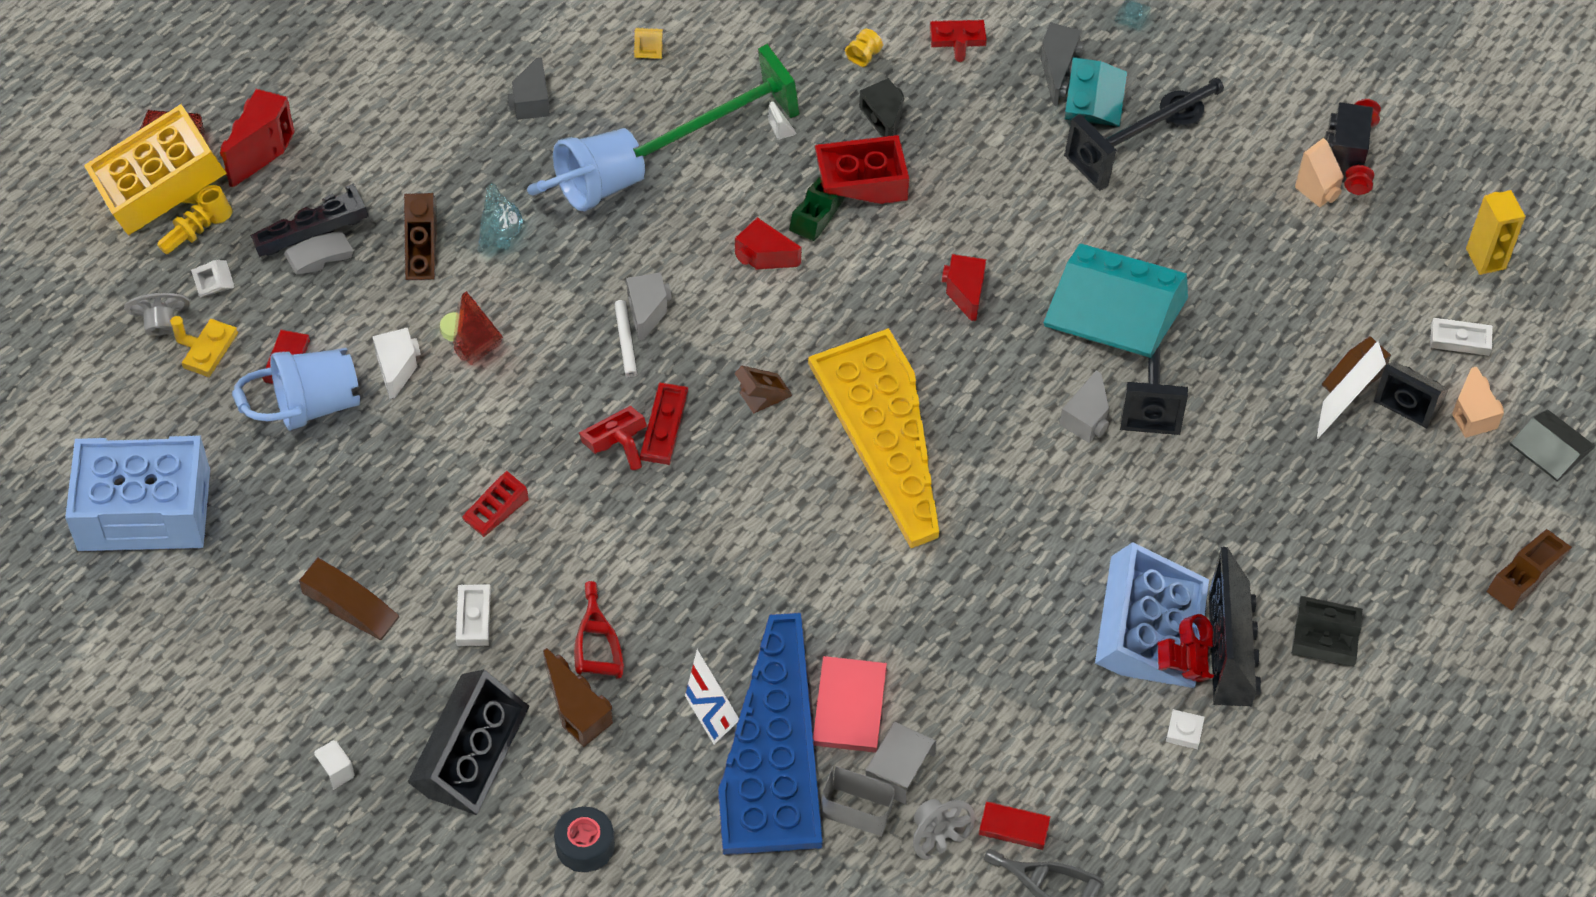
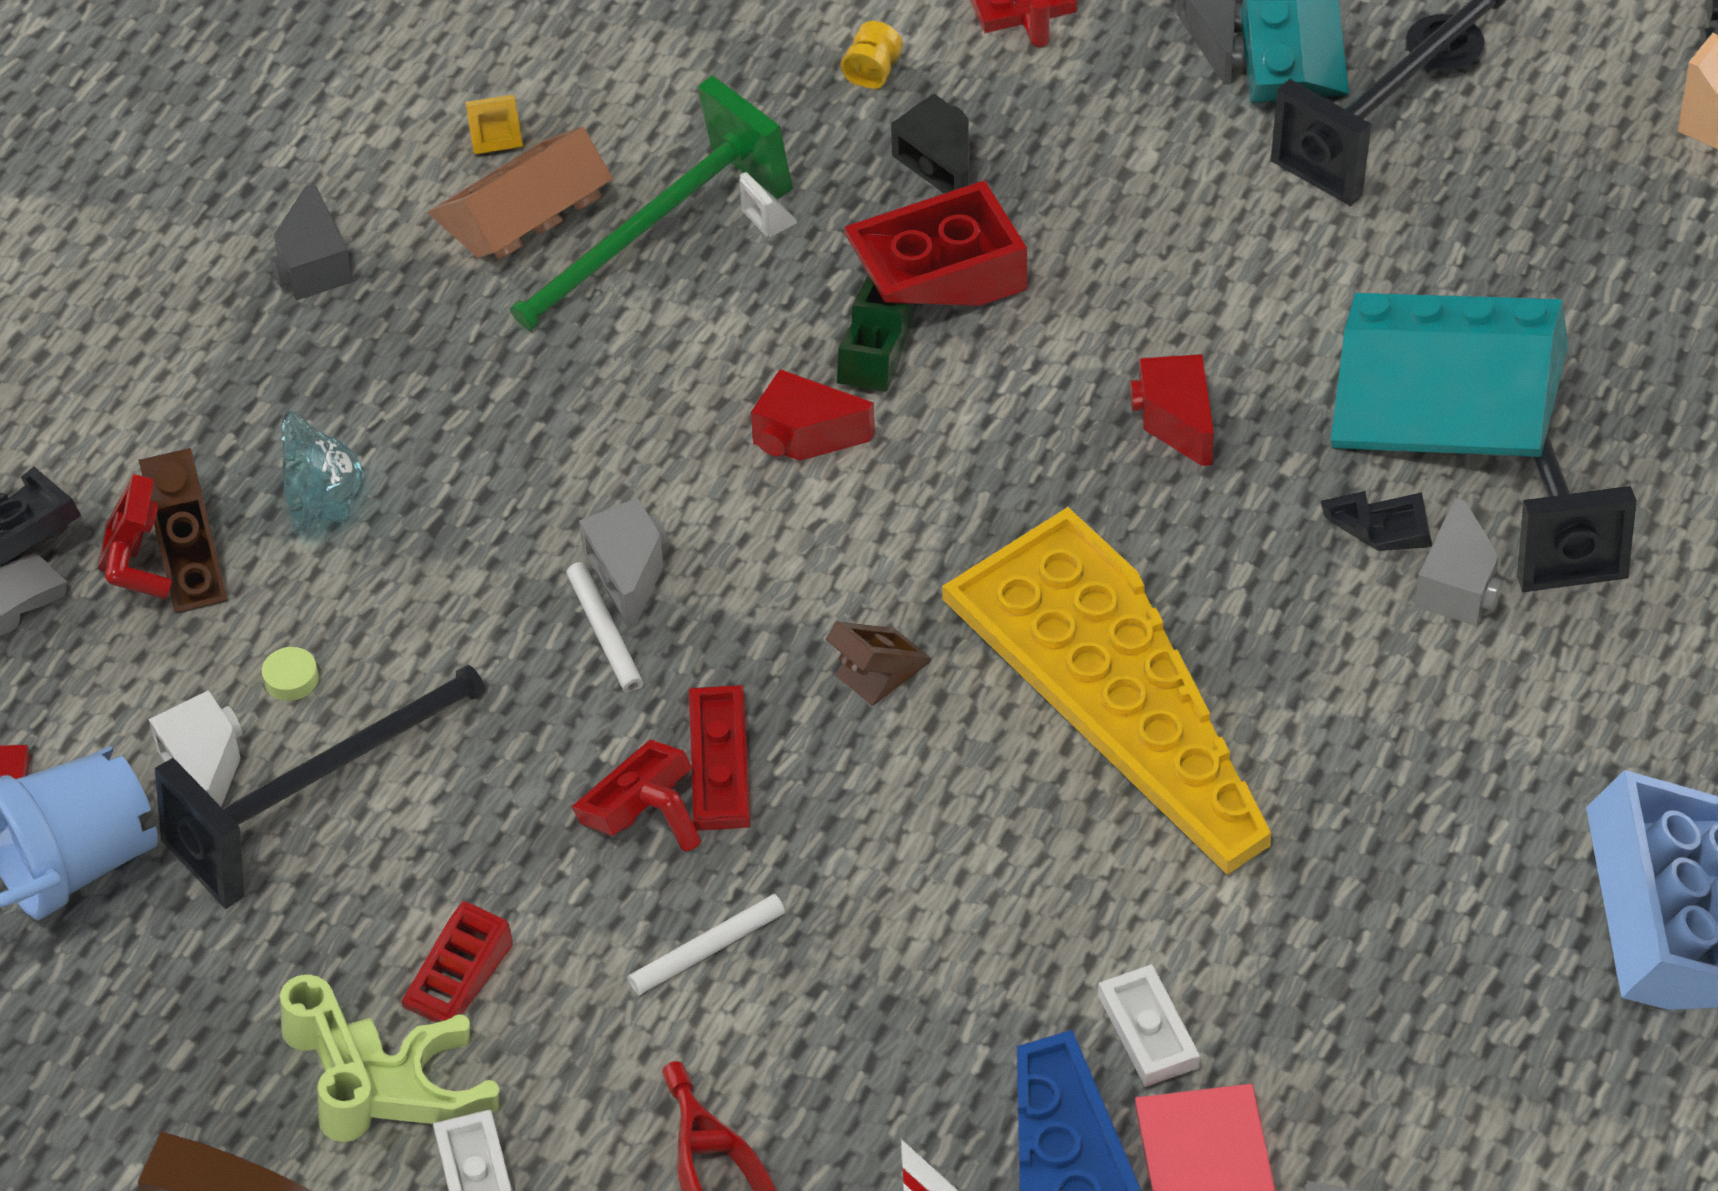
camera: 10 degrees left, 5 degrees down
(385, 405) = (209, 836): none -> black tile
(387, 234) = (124, 536): none -> red plate
(429, 551) = (364, 1080): none -> yellowish green piece
(473, 332) = (329, 671): clear red slope -> none
(593, 168) = (463, 347): light blue piece -> none
(627, 522) = (706, 944): none -> white piece
(653, 87) = (525, 194): none -> nougat slope
(842, 619) = (1148, 1025): none -> white plate
(1057, 375) = (1383, 524): none -> black slope

